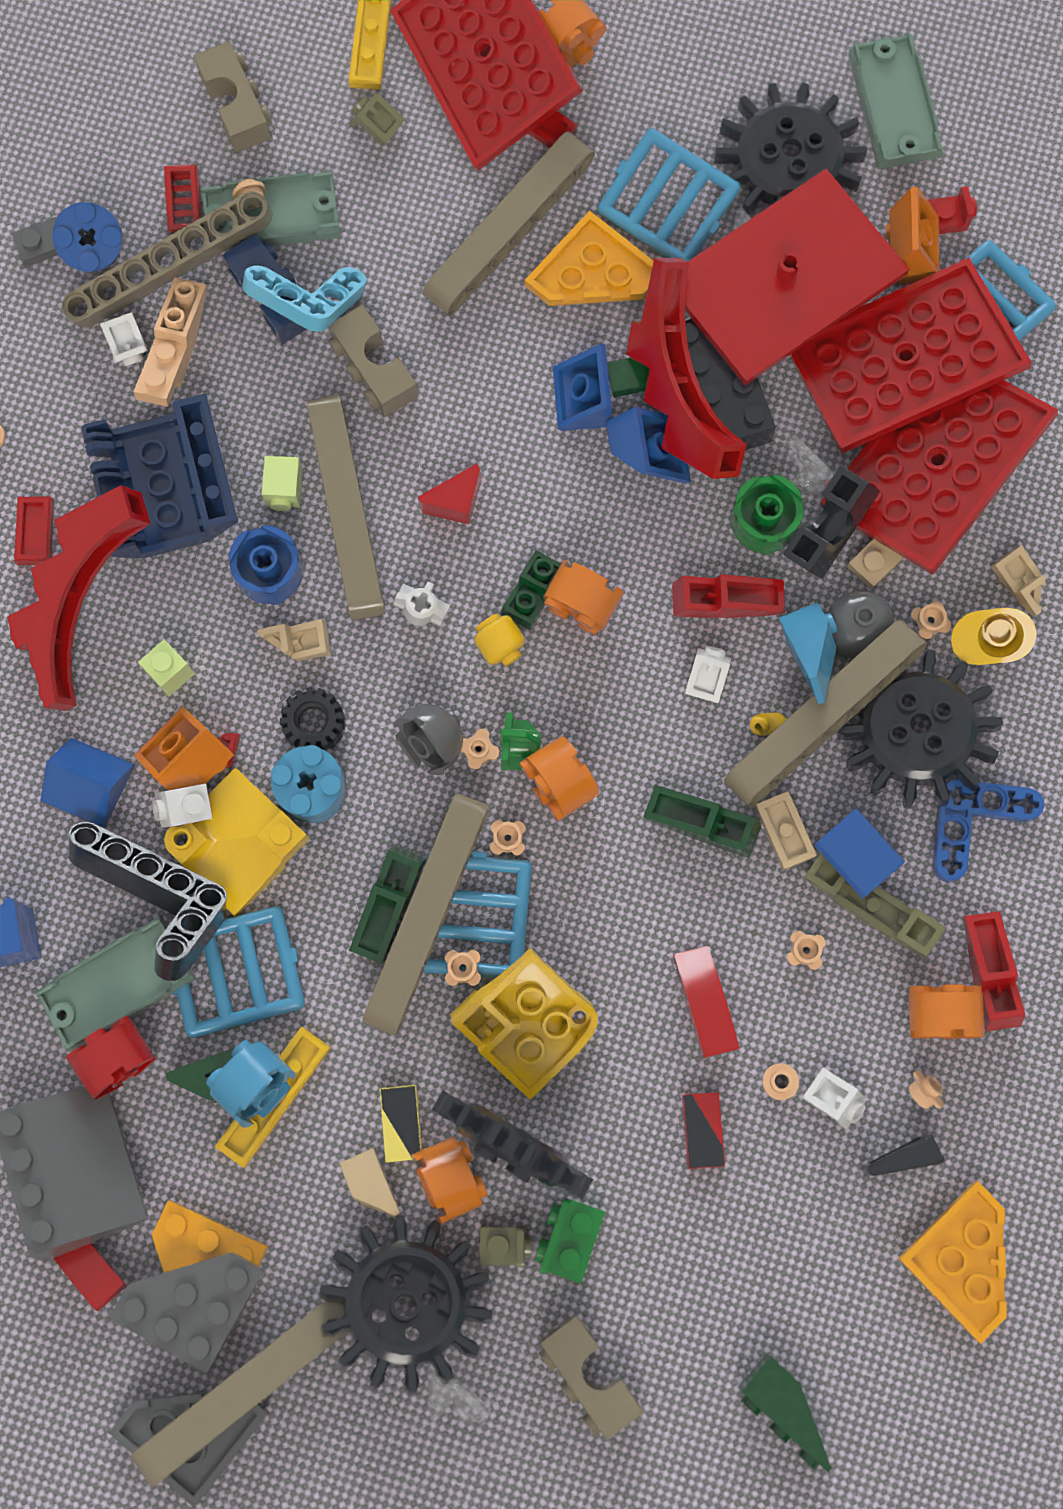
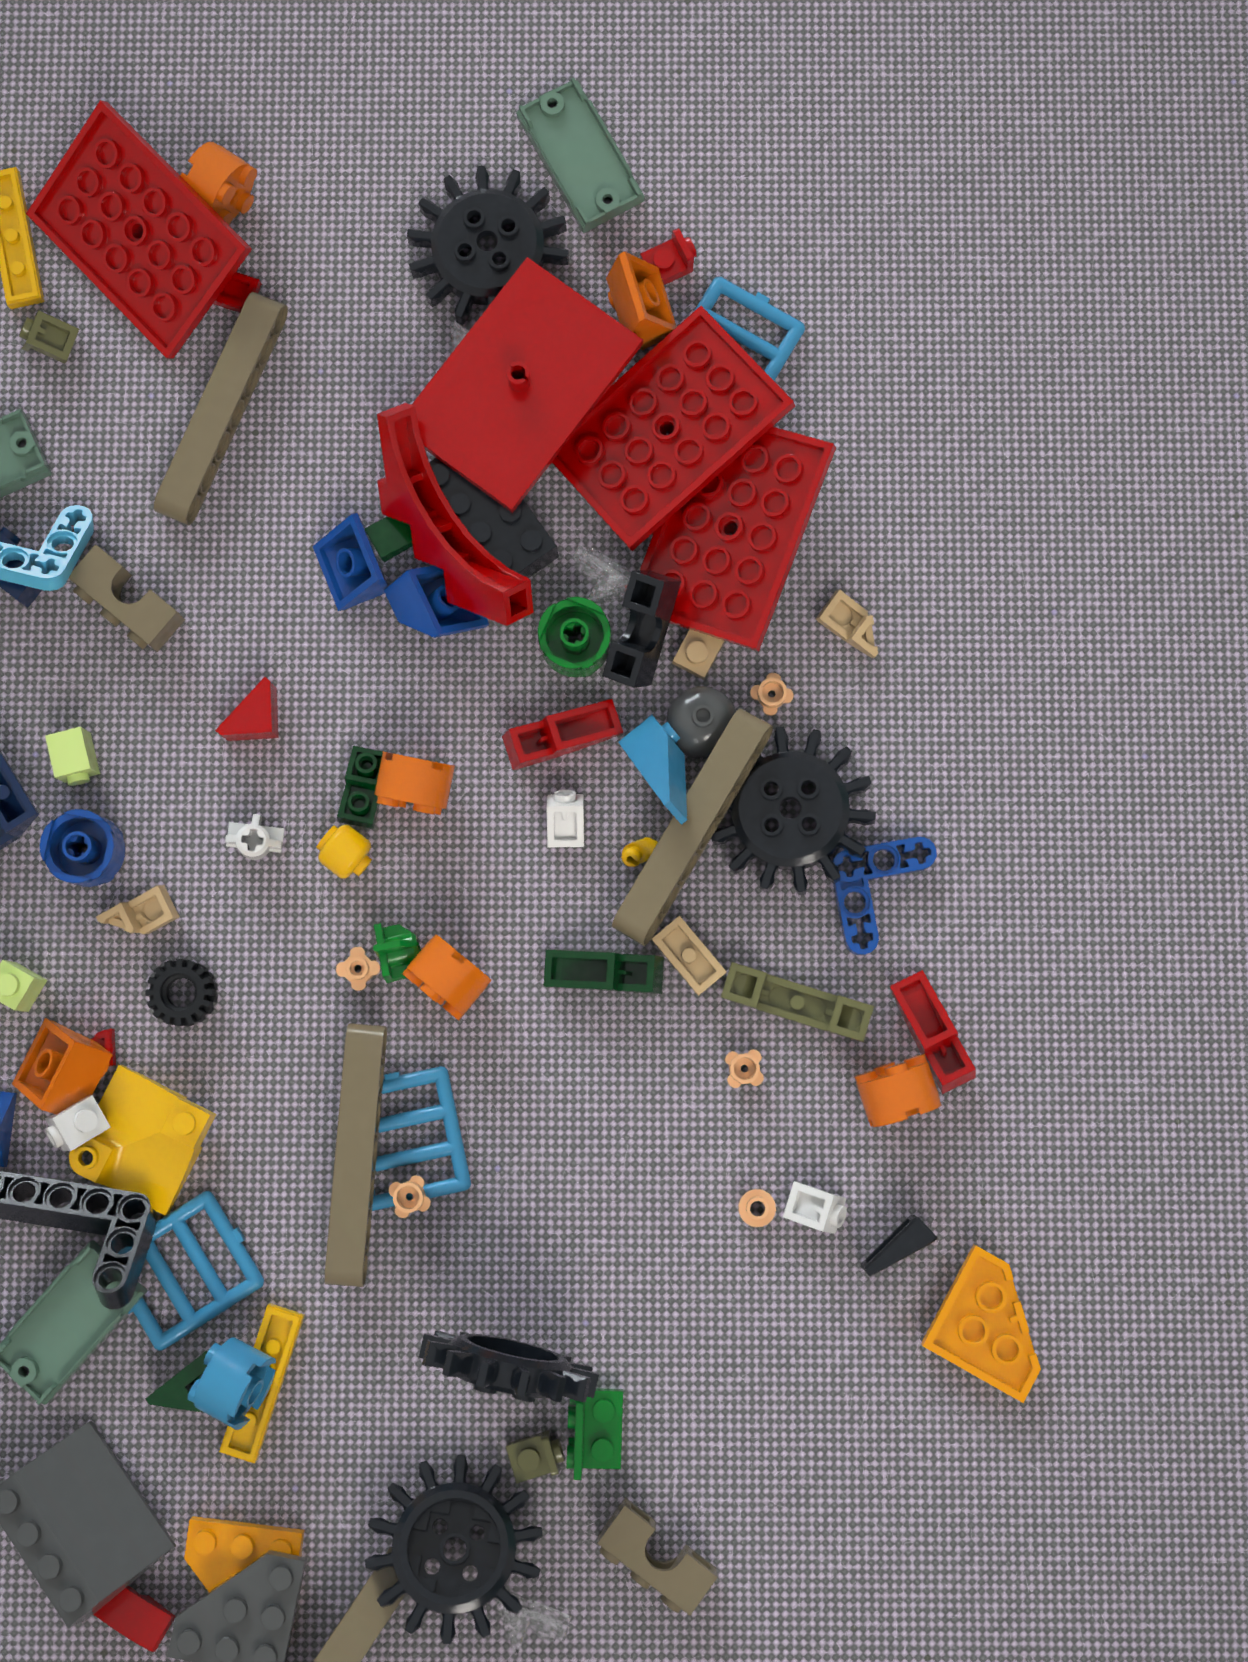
camera: 15 degrees left, 5 degrees up
(110, 1058) = (86, 1400): red brick -> none
(293, 796) = (176, 1060): dark azure brick -> none
(345, 508) = (145, 761): dark tan beam -> none
(369, 1183) = (382, 1437): tan slope -> none
(387, 904) = (314, 1154): dark green slope -> none
(400, 1122) = (397, 1369): black tile -> none
(430, 736) = (306, 971): dark grey cylinder -> none
(449, 1178) = (459, 1413): orange brick -> none
(502, 829) = (405, 1045): light nougat plate -> none
(527, 1022) = (489, 1232): yellow slope -> none
(591, 267) = (319, 429): light orange plate -> none
(676, 155) = (405, 294): dark azure bar -> none
(703, 1130) = (695, 1280): black tile -> none
(706, 1002) = (660, 1153): red slope -> none
(782, 1399) = (843, 1516): dark green slope -> none
(859, 853) = (769, 956): blue slope -> none
(926, 1090) = (901, 1172): light nougat plate -> none
(993, 636) = (837, 694): yellow piece -> none

